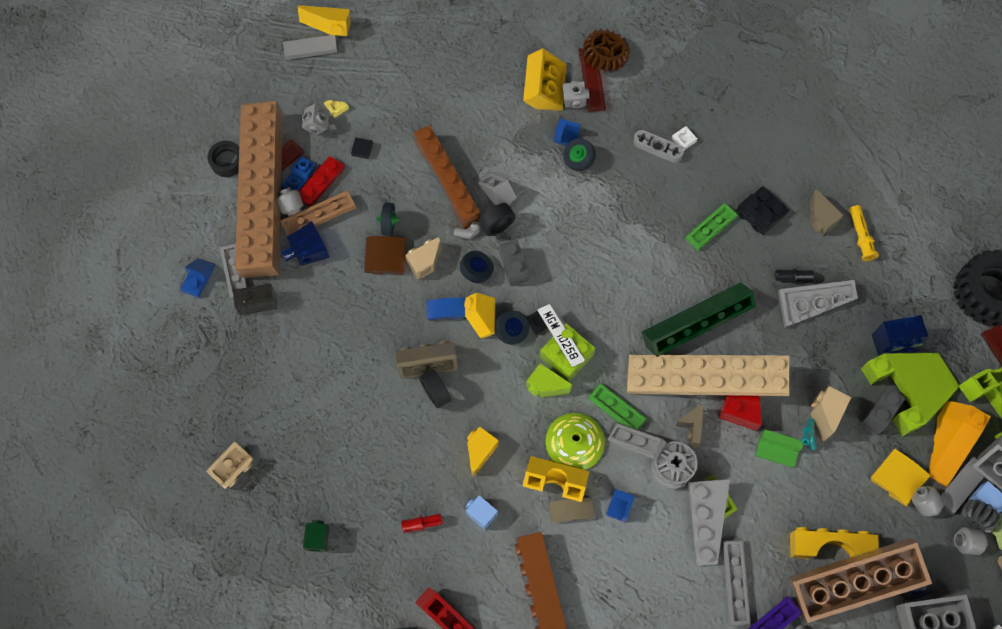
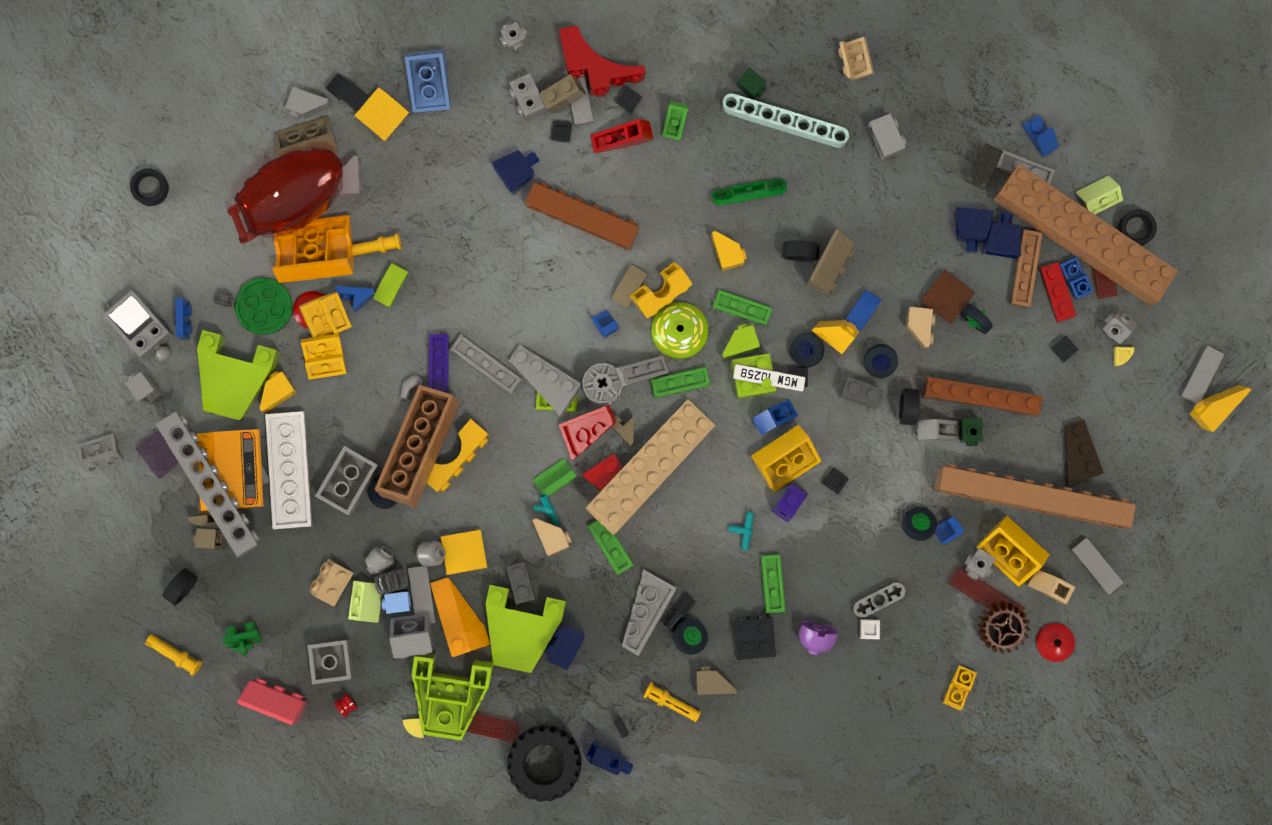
camera: 125 degrees right, 15 degrees up
(216, 202) = (1100, 195): none -> yellowish green panel
(283, 391) = (887, 136): none -> light grey brick
(289, 201) = (1053, 251): light grey head -> none
(313, 274) = (972, 226): none -> clear blue torso
(325, 476) = (778, 113): none -> light aqua beam
(397, 580) = (675, 120): none -> bright green slope
(414, 470) = (749, 191): none -> green plate
(421, 523) = (704, 168): red axle -> none
(435, 85) = (1081, 455): none -> dark brown wing
(468, 233) = (917, 378): light grey arm -> none
(479, 167) = (971, 431): none -> dark green brick
(481, 511) = (679, 217): light blue brick -> none
(496, 91) = (1035, 498): none -> medium nougat brick
(508, 25) = (1097, 566): none -> light grey tile
(516, 405) = (742, 307): none -> bright green tile
(550, 36) = (1051, 587): none -> tan slope
(583, 22) = (1046, 638): none -> red dish
(586, 313) = (775, 417): none -> blue slope
(596, 237) = (835, 481): none -> black tile
(610, 283) = (786, 458): none -> yellow slope
(640, 254) = (790, 502): none -> dark purple torso
(672, 54) = (959, 688): none -> yellow slope
(690, 273) = (746, 530): none -> teal piece
(698, 319) = (701, 501): dark green brick -> none
(721, 452) = (586, 429): none -> wing
(723, 164) = (817, 637): none -> medium lavender cylinder
(795, 350) = (611, 547): none -> bright green tile
(805, 253) = (690, 637): none -> black wheel
(914, 254) = (621, 727): none -> black tile
(947, 246) = (602, 755): none -> clear blue torso

